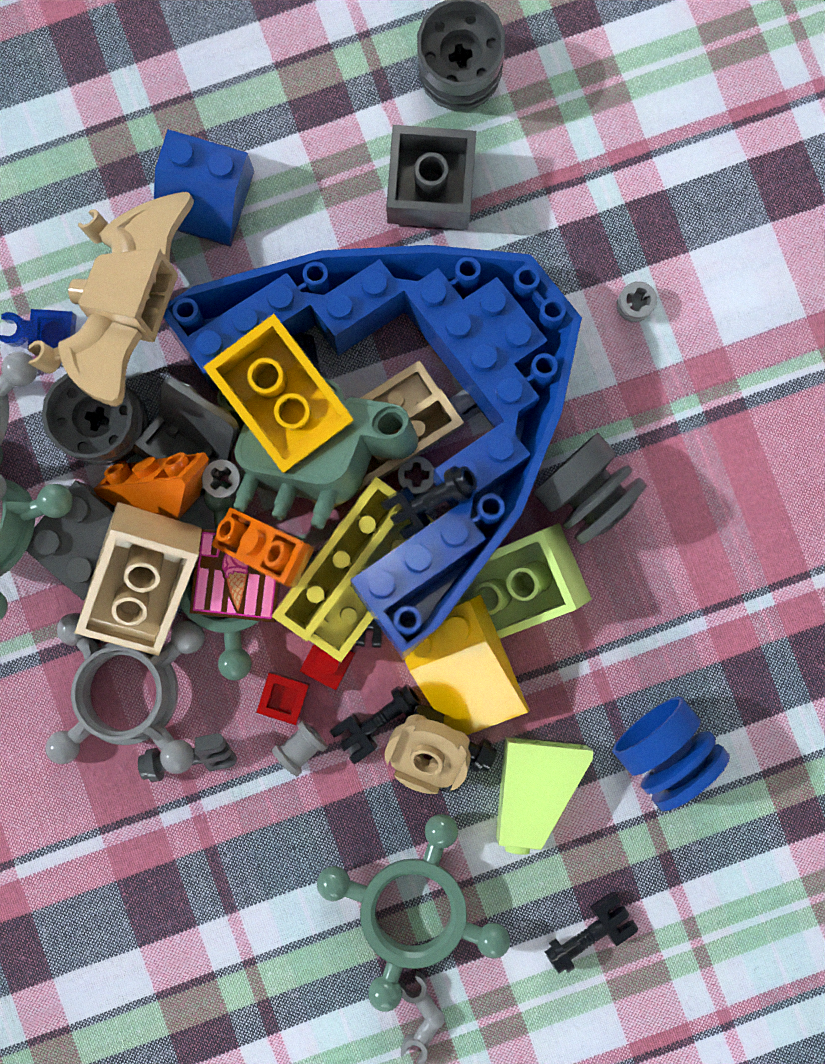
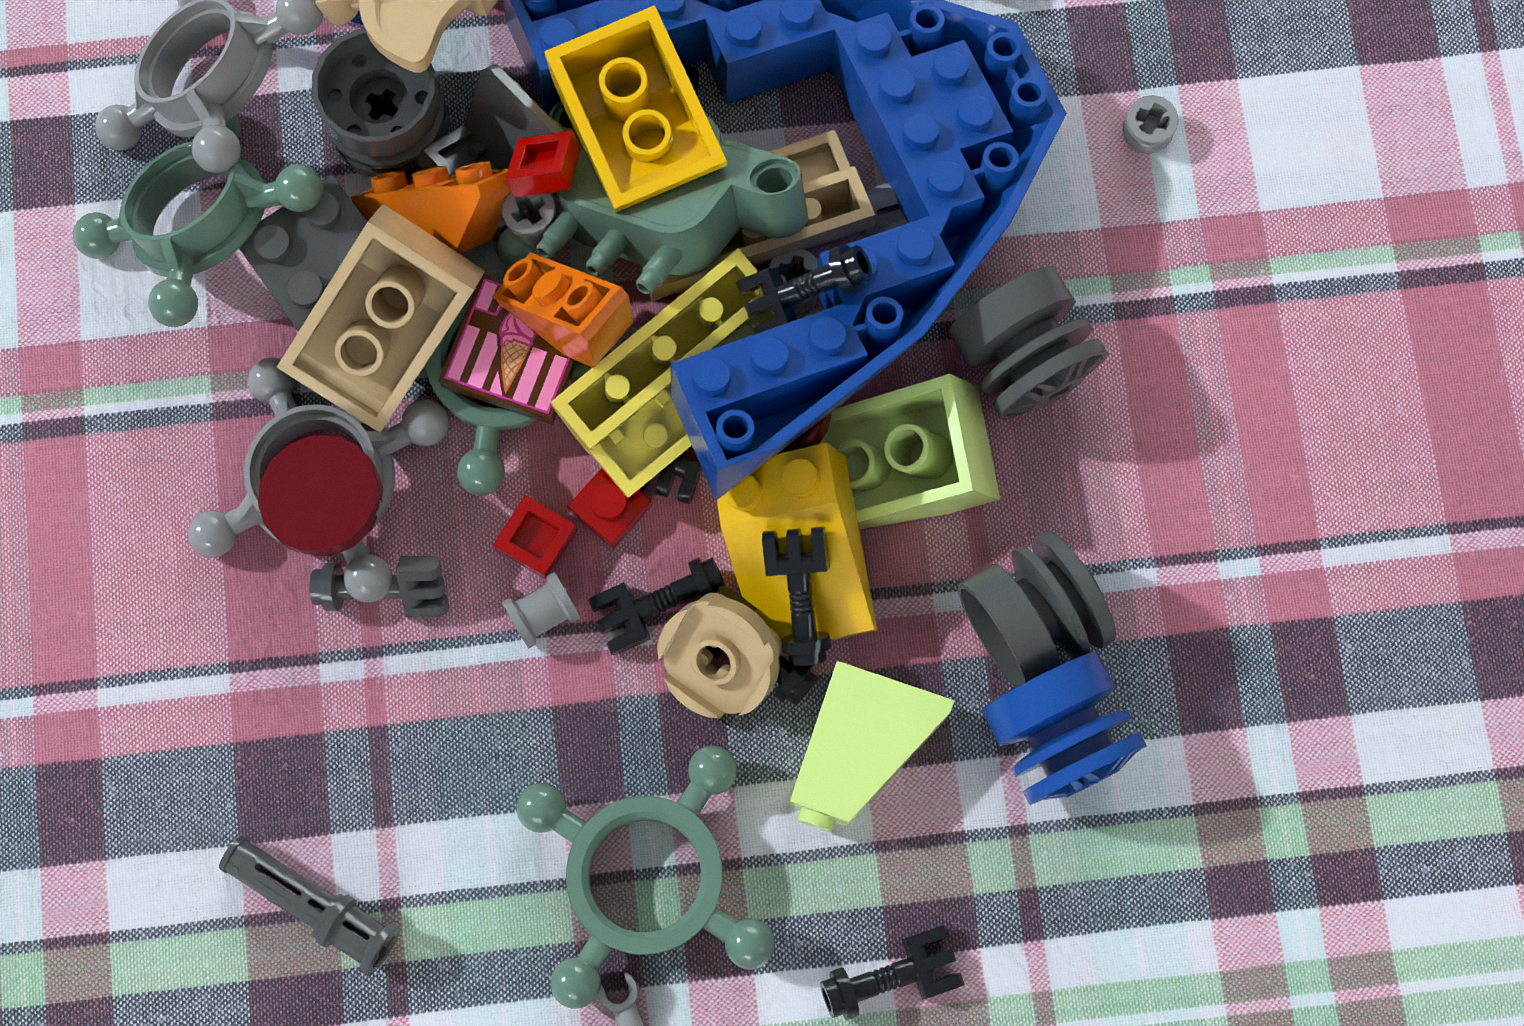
camera: 15 degrees right, 10 degrees down
(129, 715) = (320, 495): none -> dark red tile
(221, 987) = (339, 913): none -> dark grey pin
(223, 446) = (543, 163): none -> red plate
(484, 734) = (806, 644): none -> black hinge
(636, 677) = (1046, 606): none -> dark grey wheel

